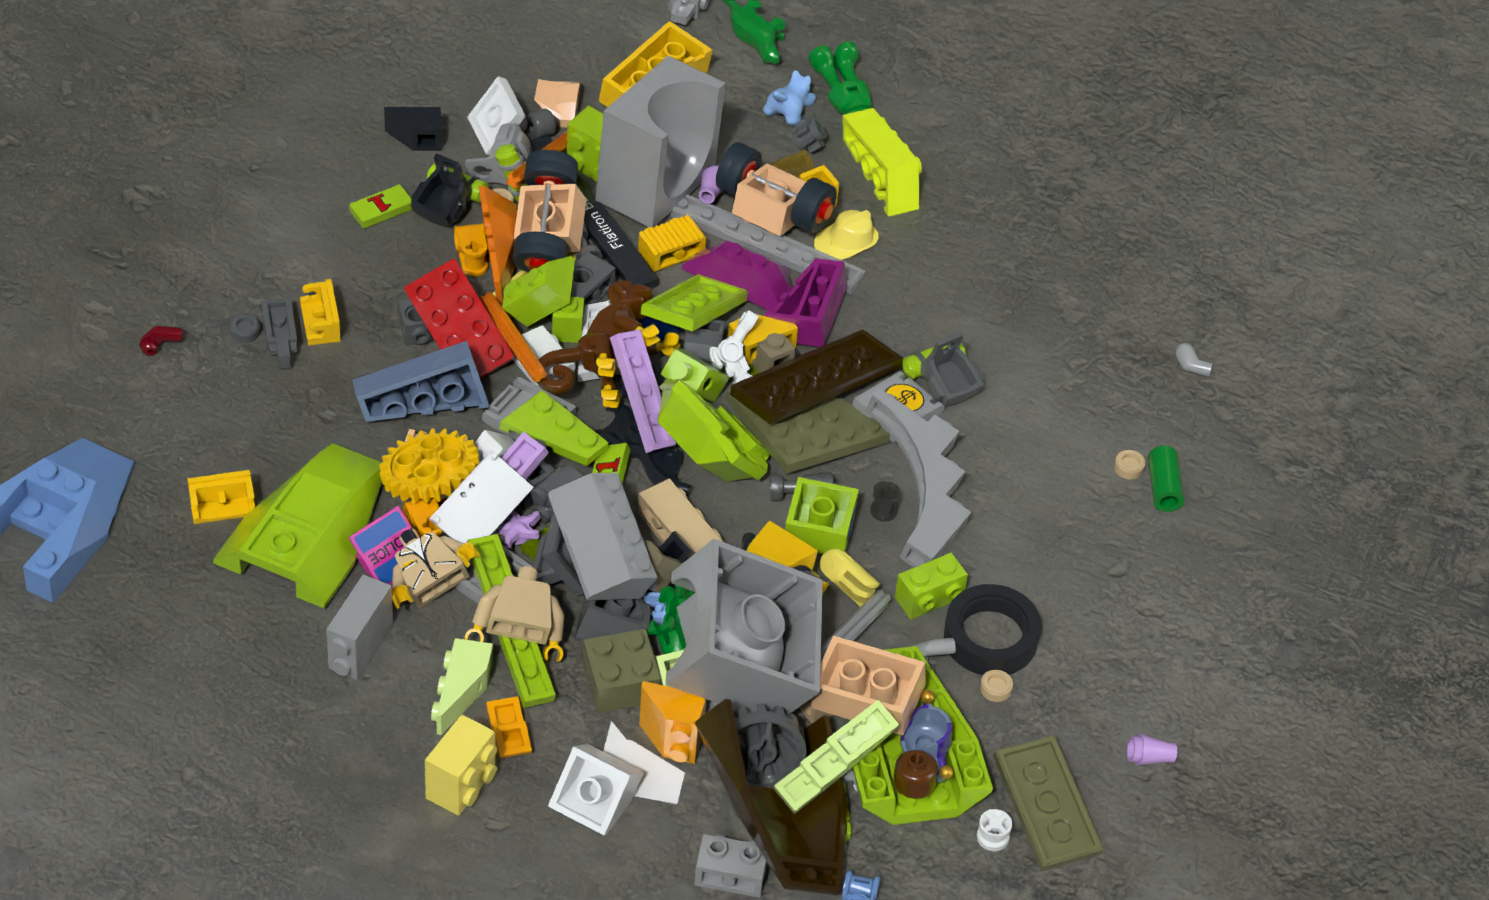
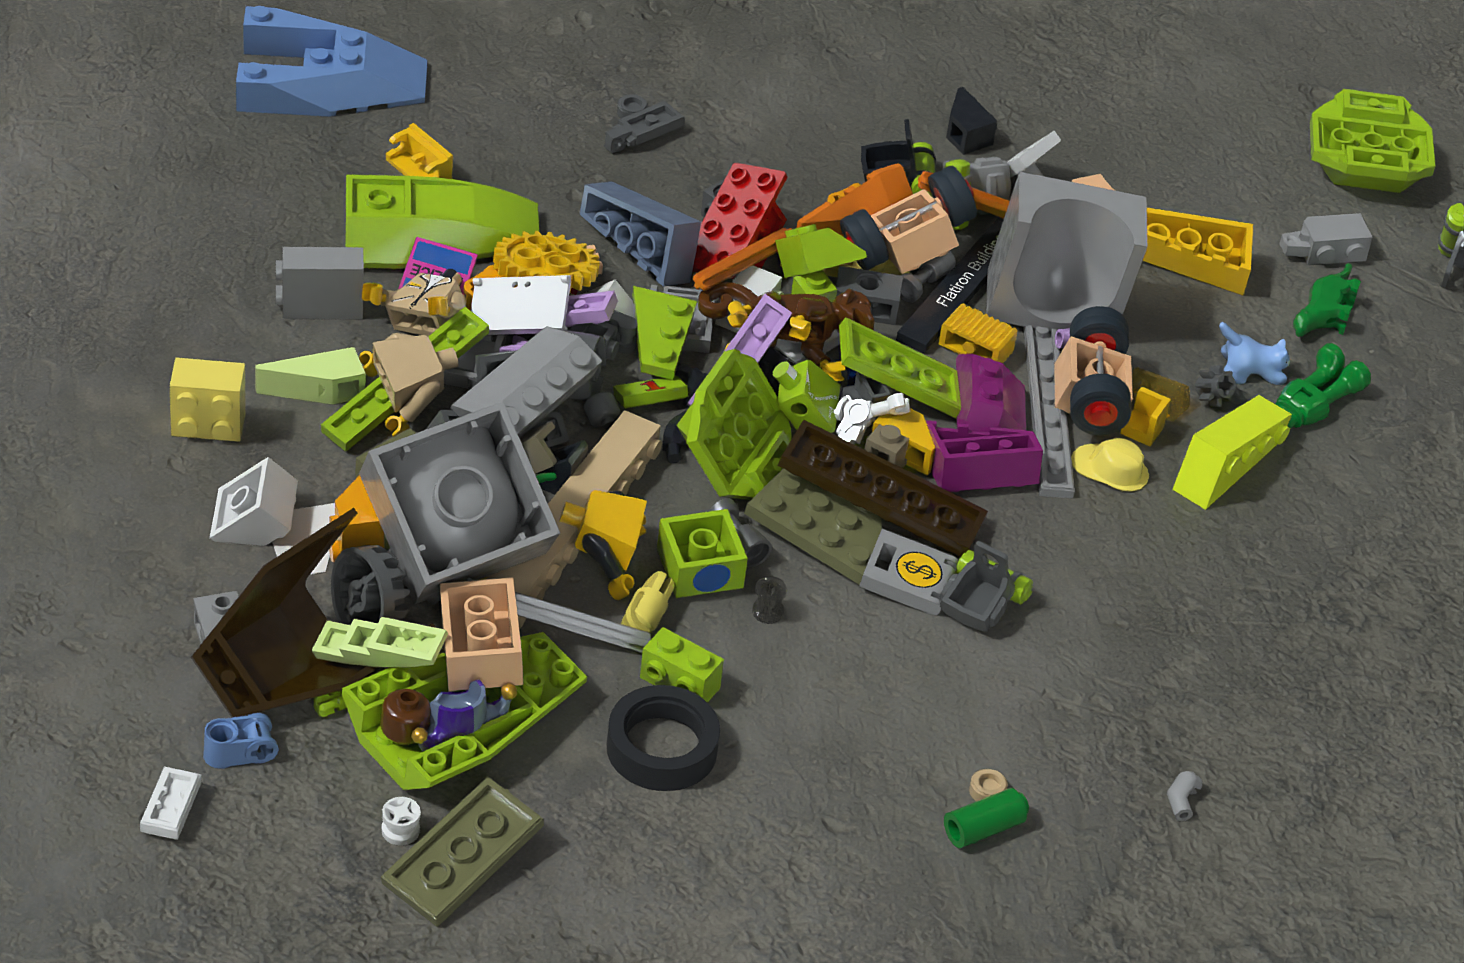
camera: 60 degrees right, 5 degrees down
(156, 335) = (573, 58): dark red arm -> none
(320, 313) = (687, 147): yellow hinge -> none
(381, 206) = (848, 135): lime tile -> none
(510, 729) = (291, 431): light orange slope -> none
(936, 477) = (778, 643): light grey arch -> none
(936, 647) = (596, 693): light grey arm -> none
(996, 685) = (597, 769): tan tile -> none
(1149, 750) = (593, 916): lavender cone -> none

